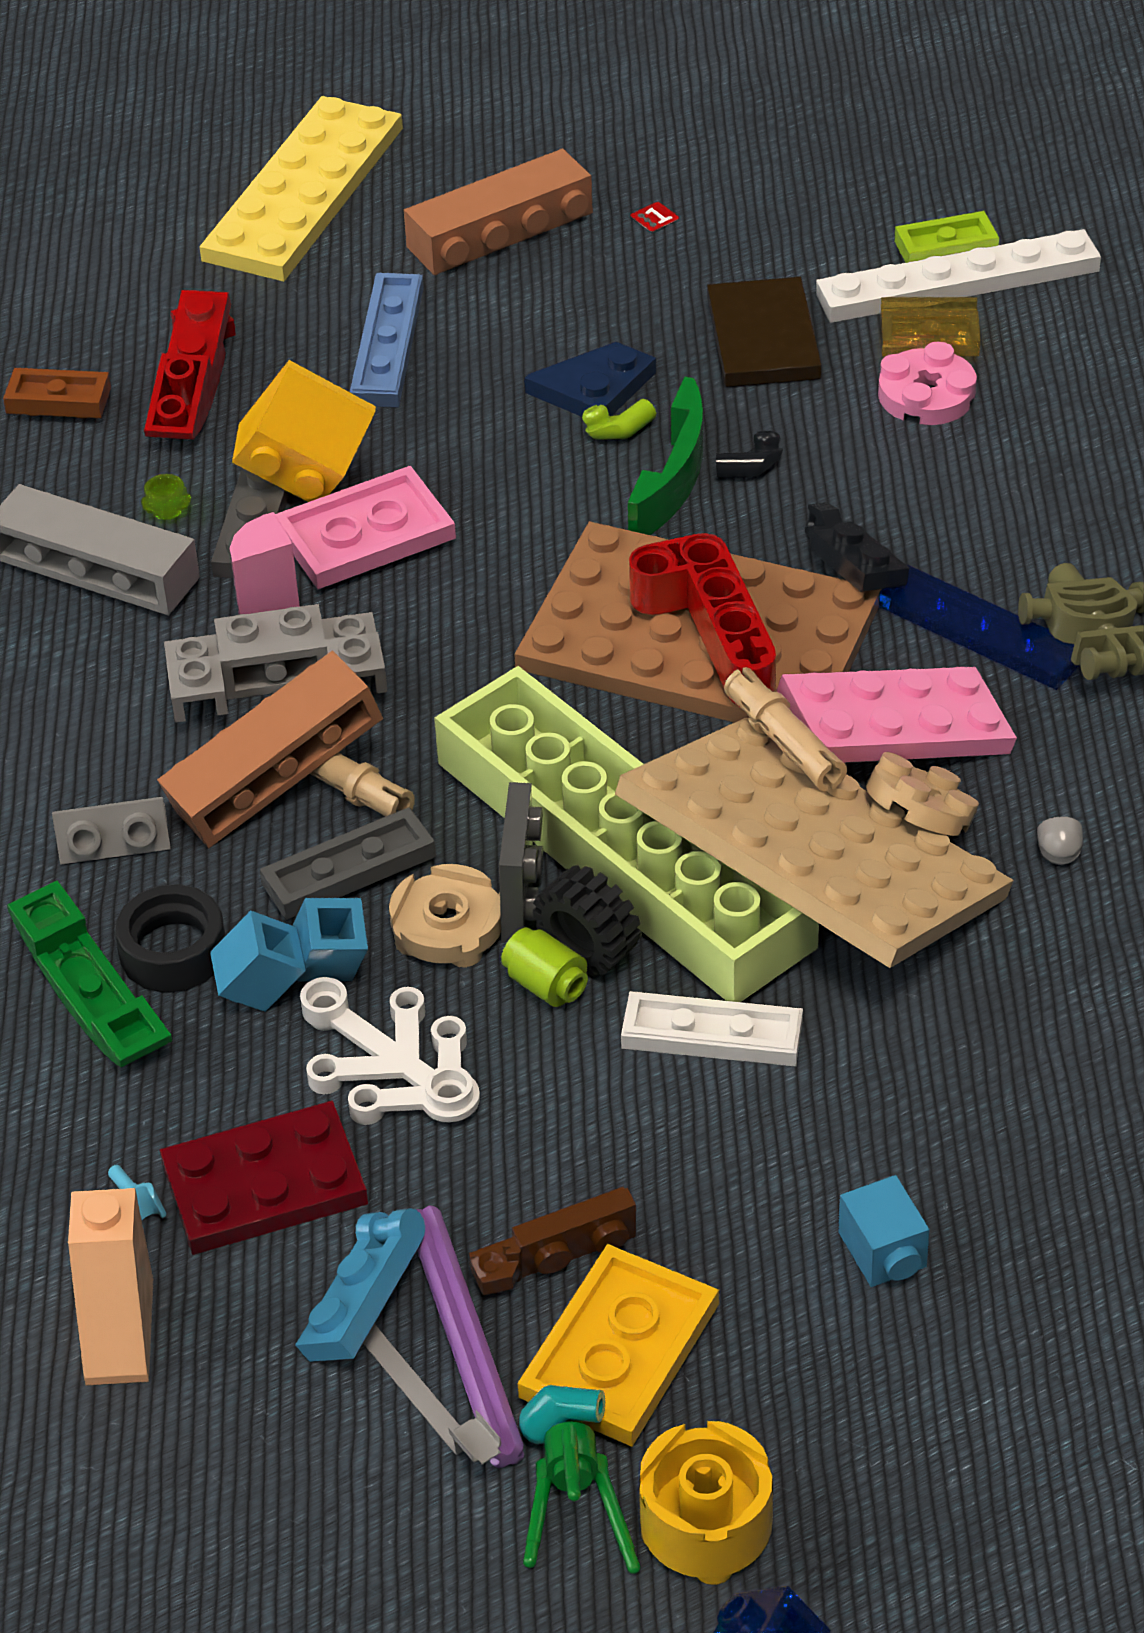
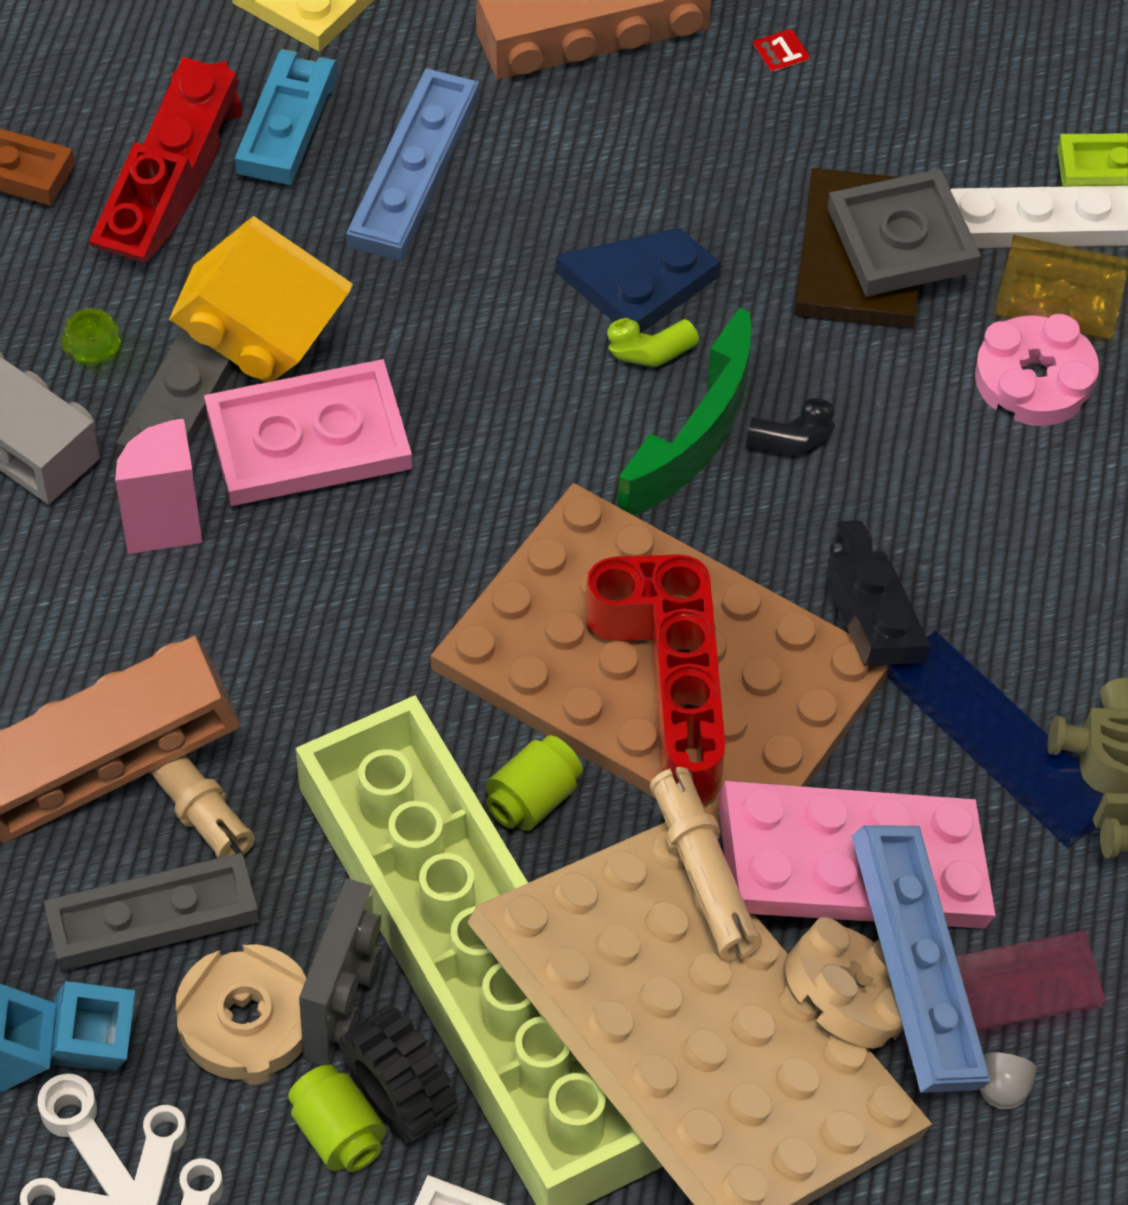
camera: 10 degrees right, 10 degrees up
(267, 651) = (145, 593): light grey bracket -> none
(273, 324) = (285, 117): none -> dark azure plate
(630, 714) = (533, 783): none -> lime brick
(795, 308) = (903, 232): none -> dark grey plate
(972, 763) = (920, 959): none -> medium blue tile
(1052, 771) = (1031, 980): none -> clear pink hinge

